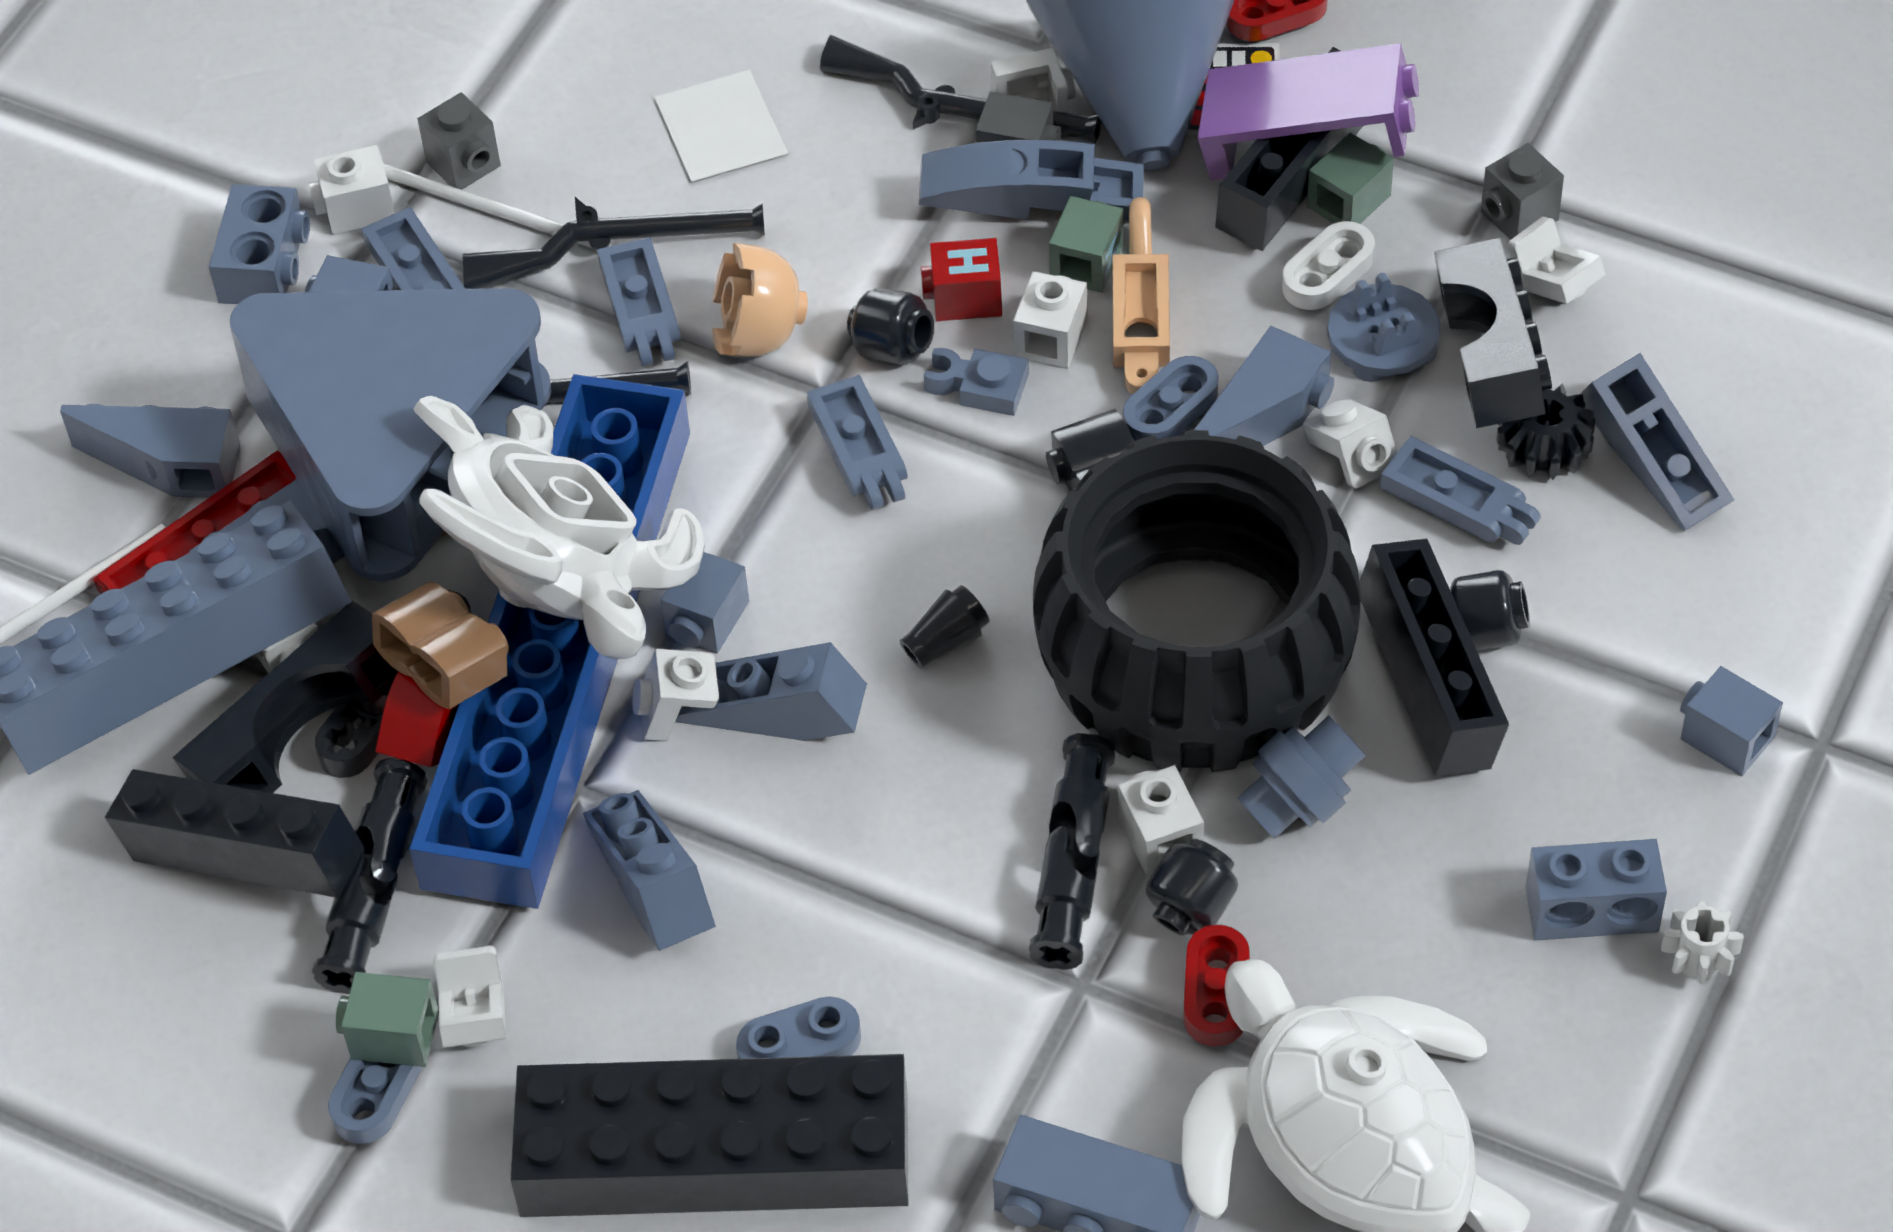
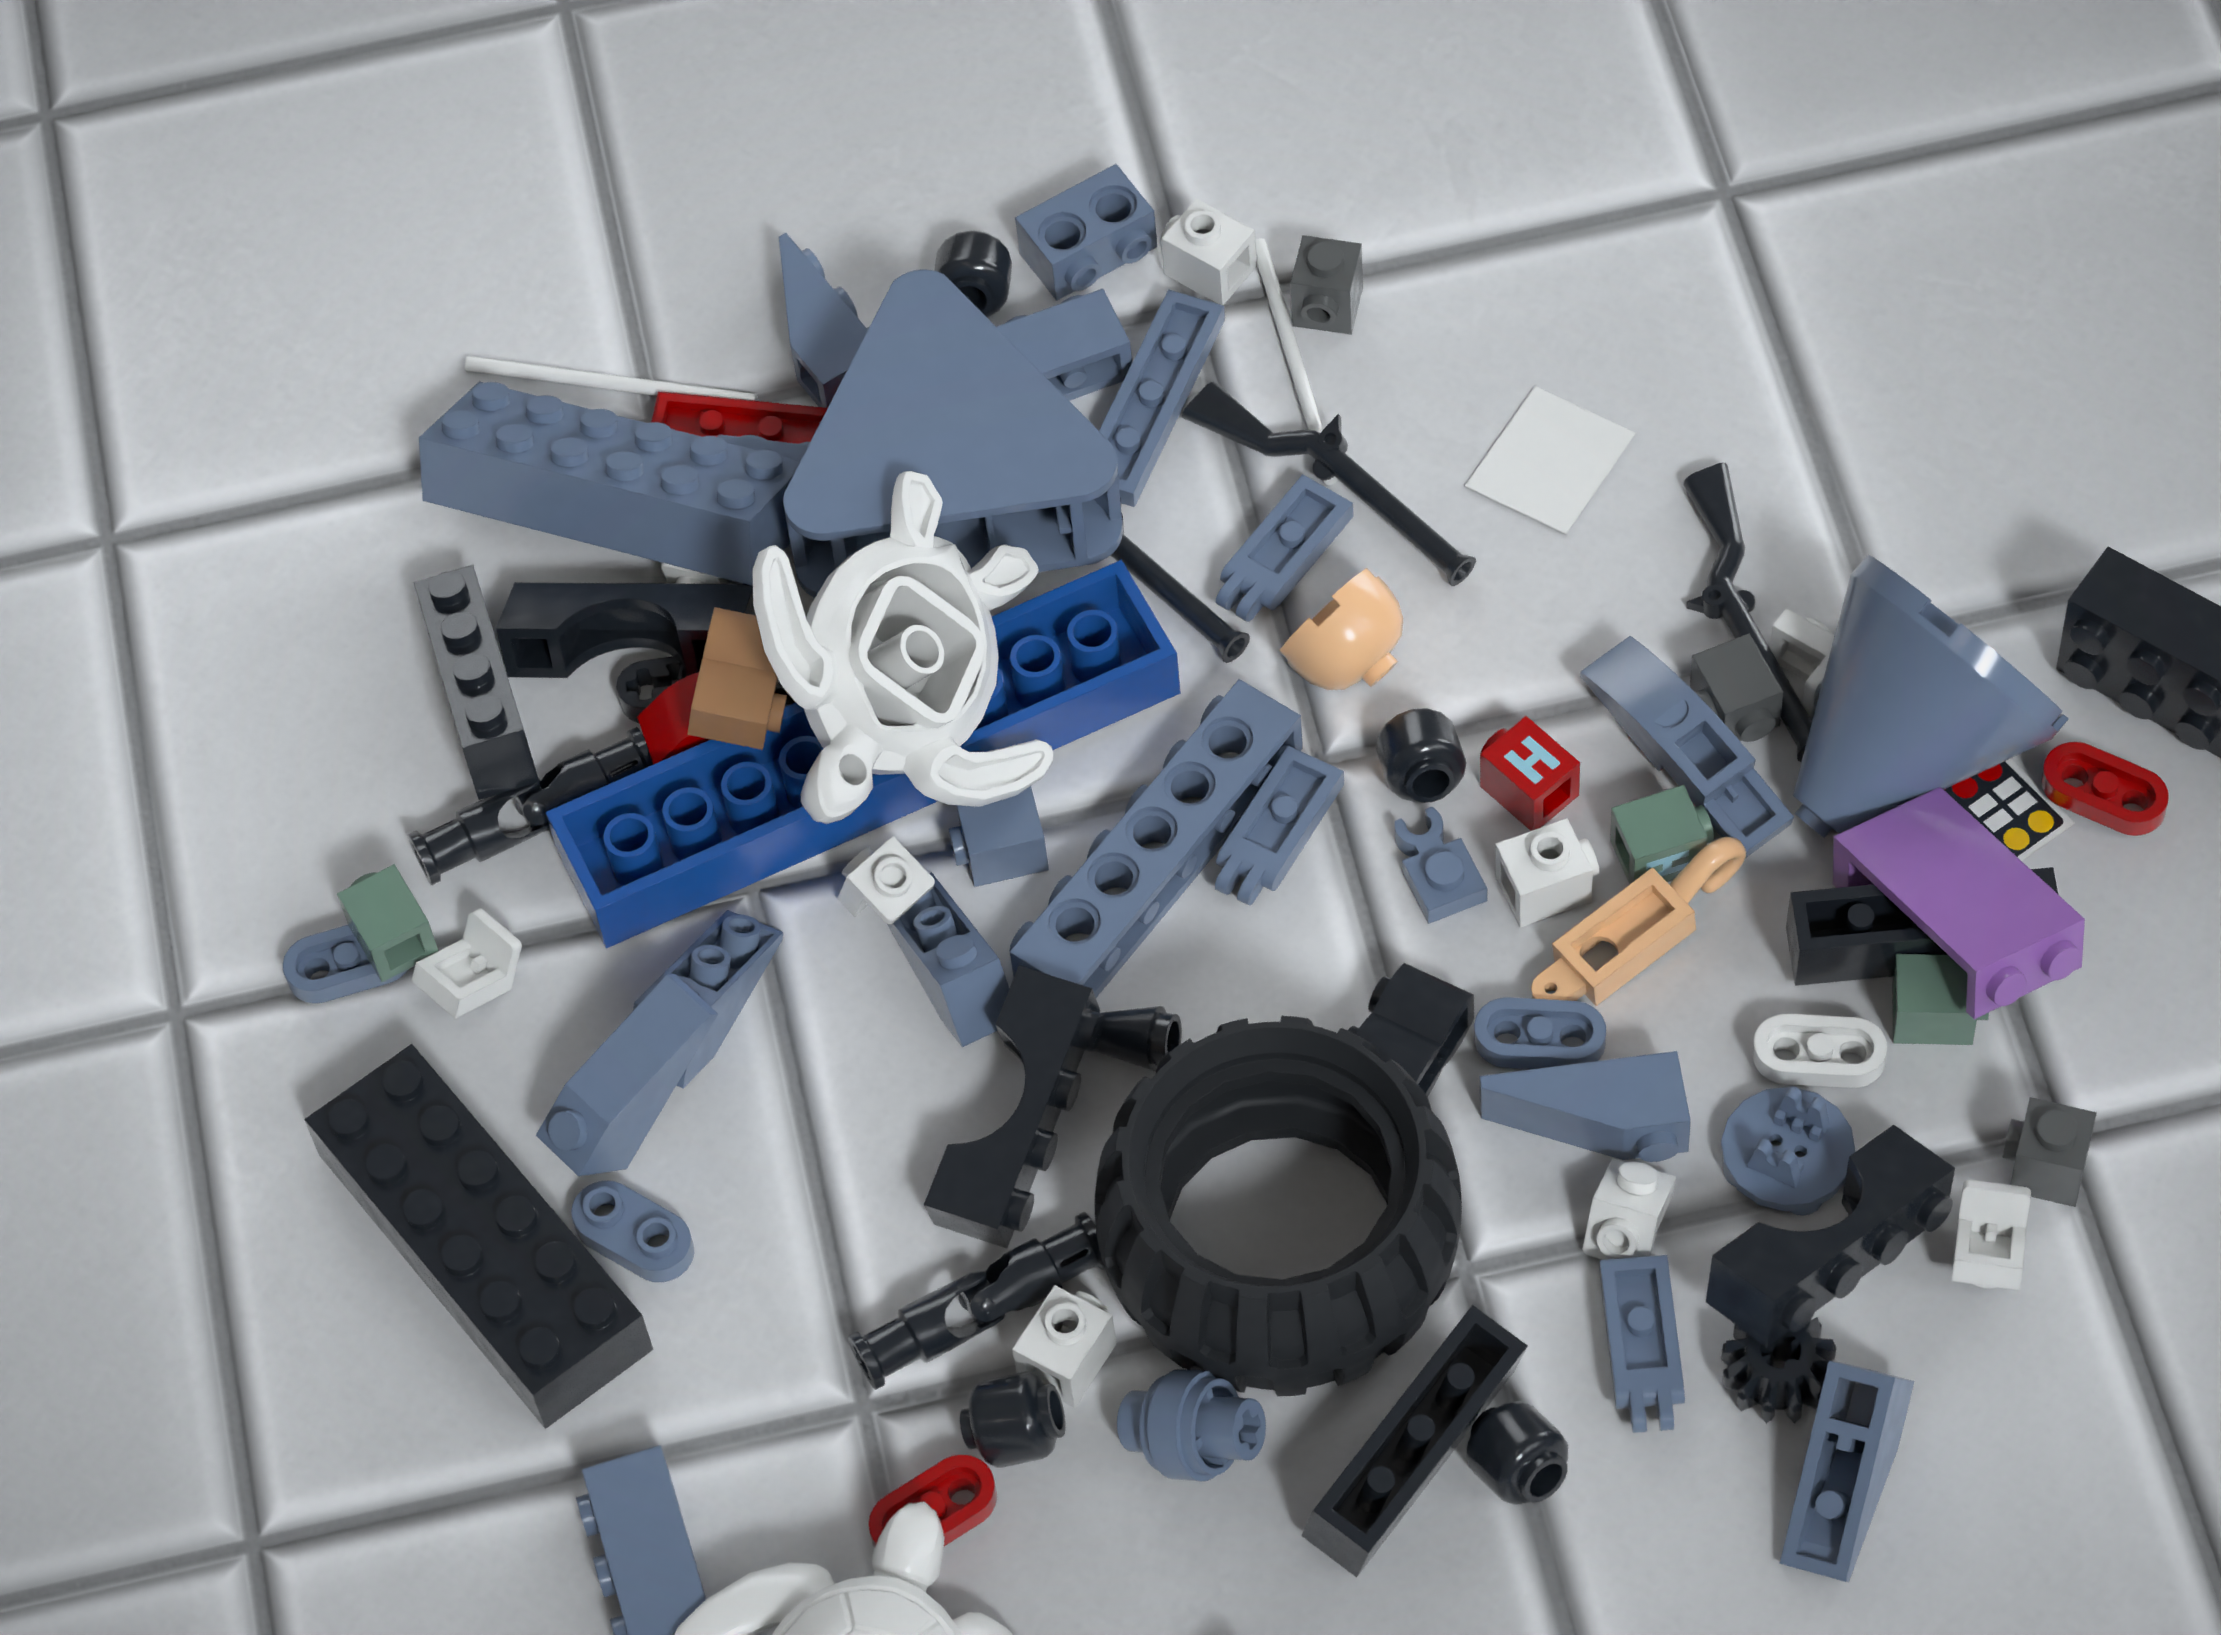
camera: 55 degrees right, 5 degrees up
(205, 329) = (978, 268): none -> black head
(694, 934) = (627, 1081): none -> sand blue slope
(808, 515) = (1192, 834): none -> sand blue brick
(908, 663) = (987, 1182): none -> black arch

